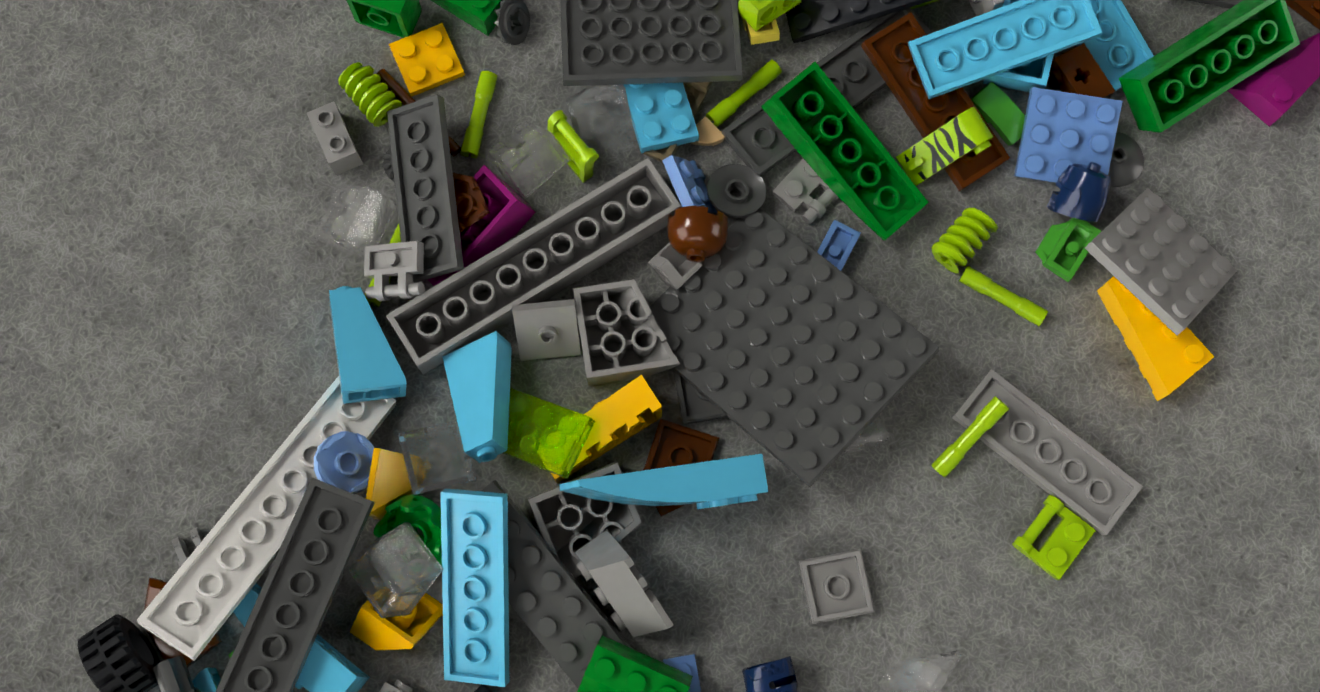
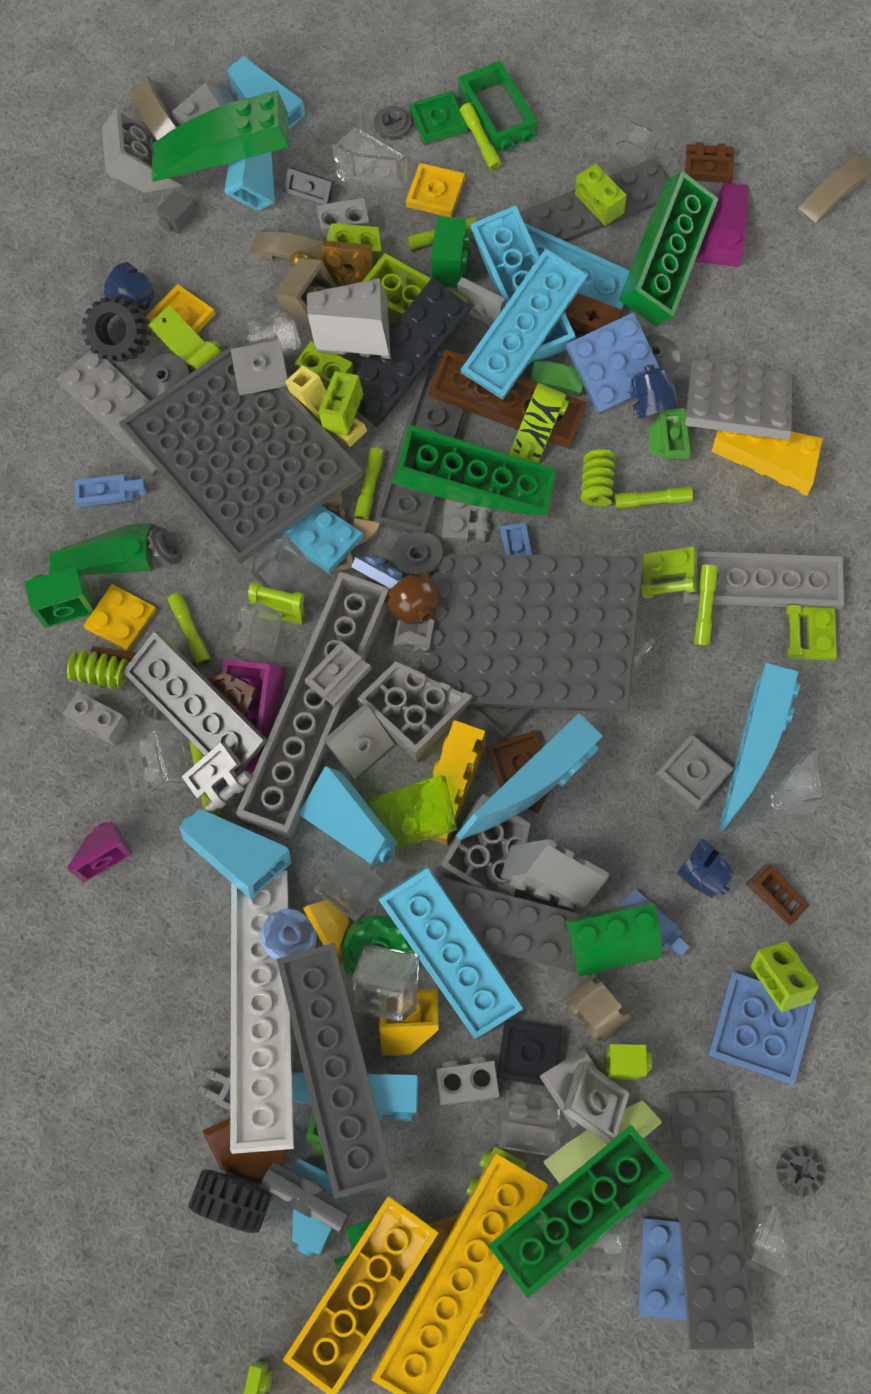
camera: 30 degrees left, 5 degrees down
(246, 261) = (99, 852): none -> magenta slope
(570, 253) = (337, 674): none -> light grey plate
(935, 593) = (766, 720): none -> medium azure slope
(965, 372) = (669, 565): none -> lime plate

